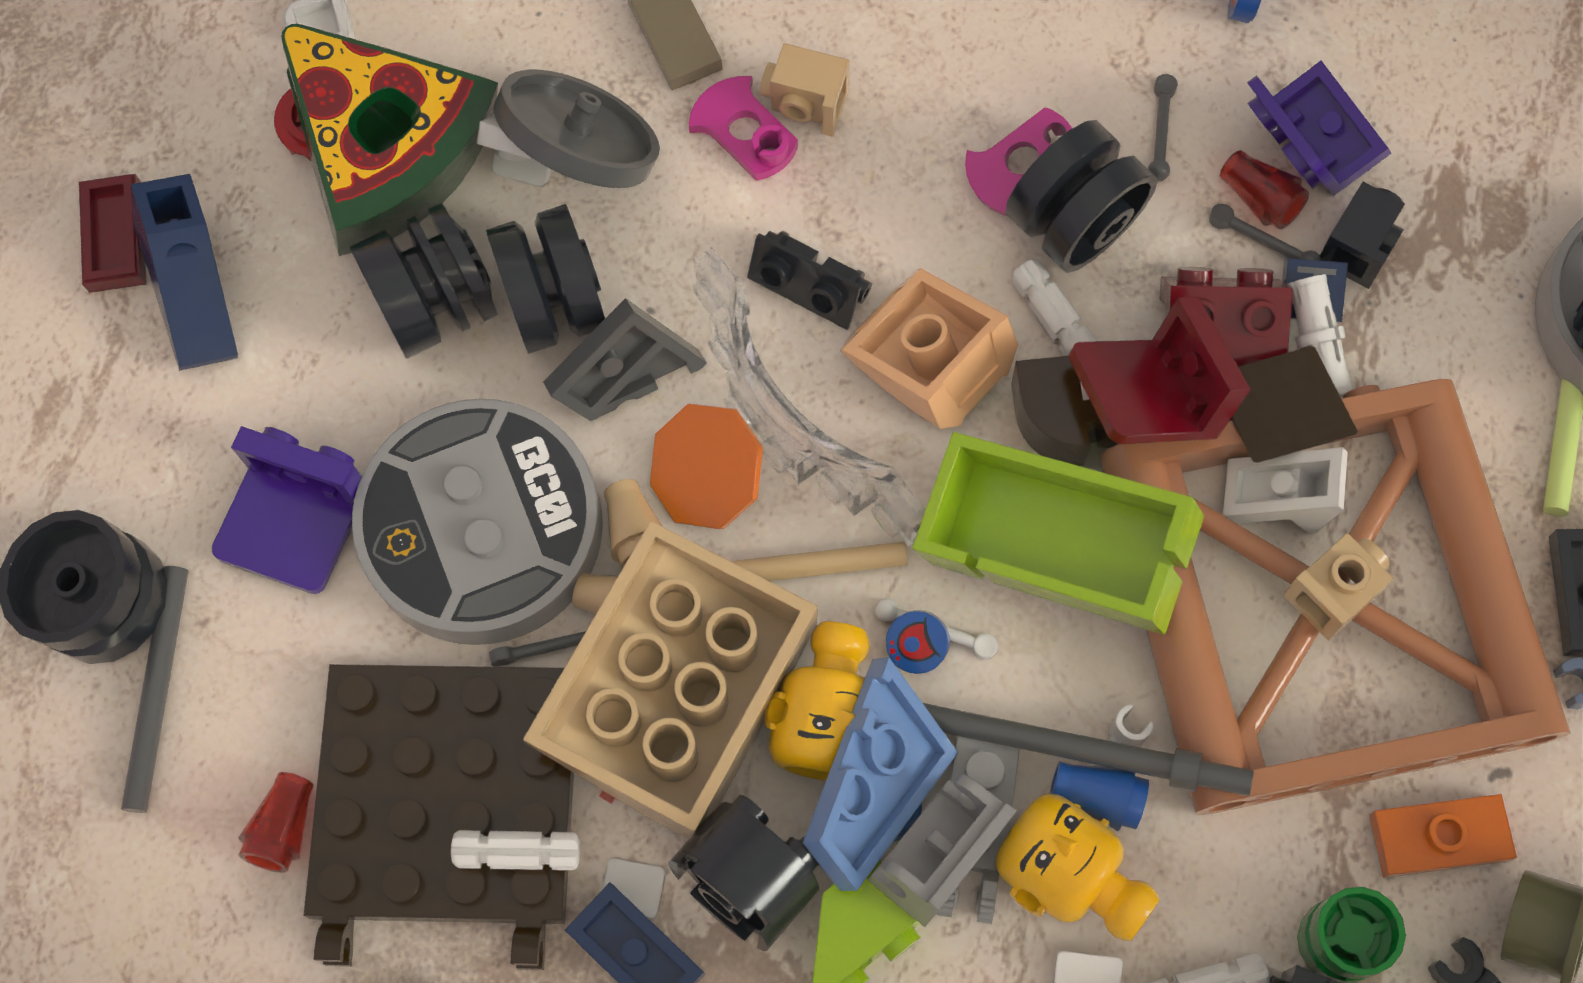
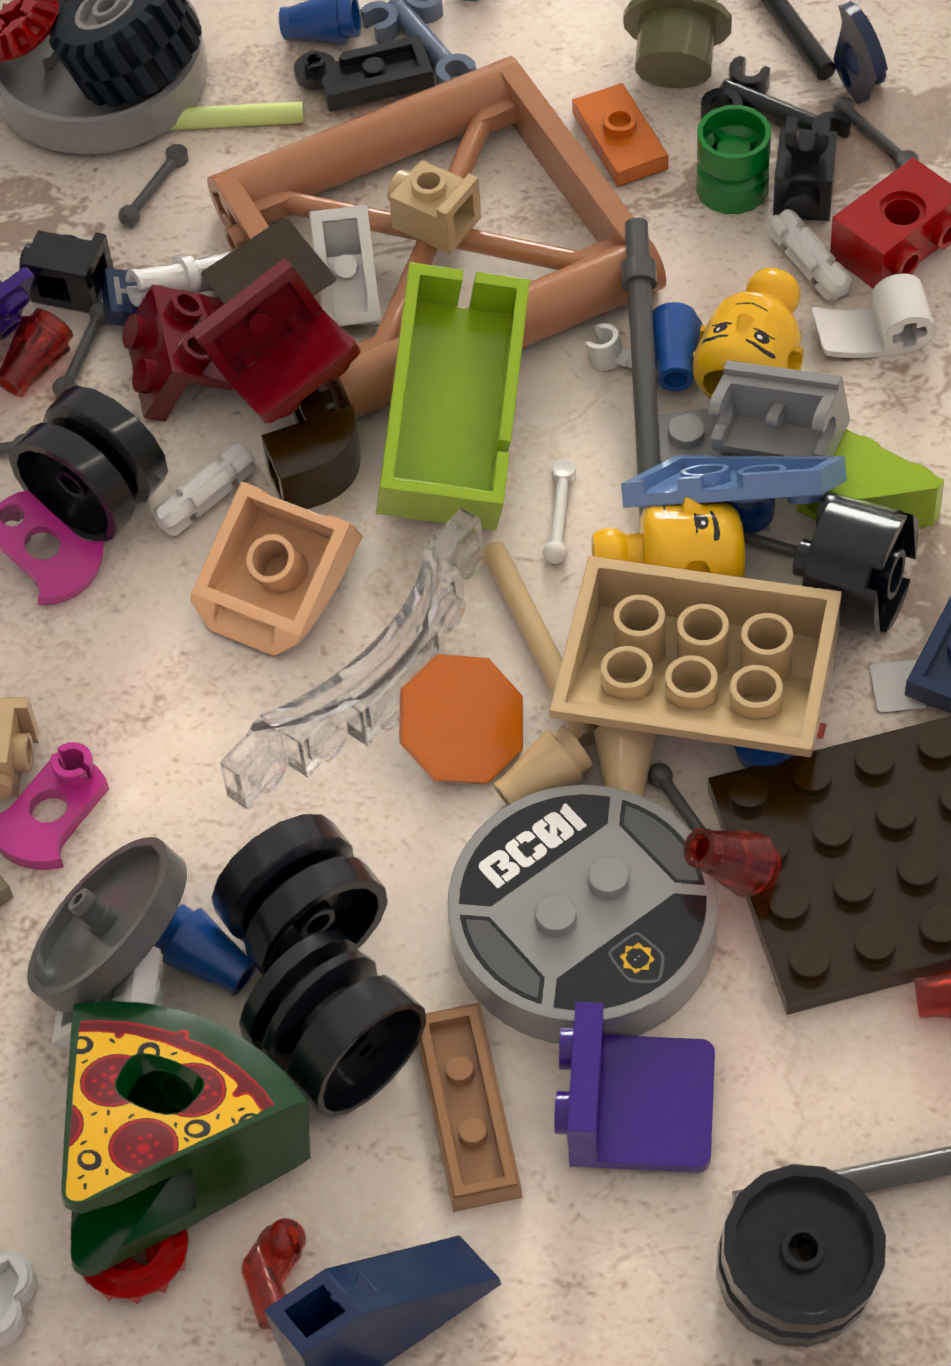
camera: 105 degrees left, 15 degrees down
(262, 206) = (270, 1264): none -> clear red arm
(344, 386) = (468, 1109): none -> medium nougat tile
(454, 646) = (735, 859): none -> clear red cone
(515, 850) = (913, 751): white axle -> none
(555, 194) = (204, 950): none -> blue cone
(620, 362) = (394, 844): dark grey wing -> none
(791, 271) = (228, 681): black hinge -> none
(917, 641) = (579, 512): blue tile -> none
(1517, 373) = (176, 157): none -> dark grey hinge

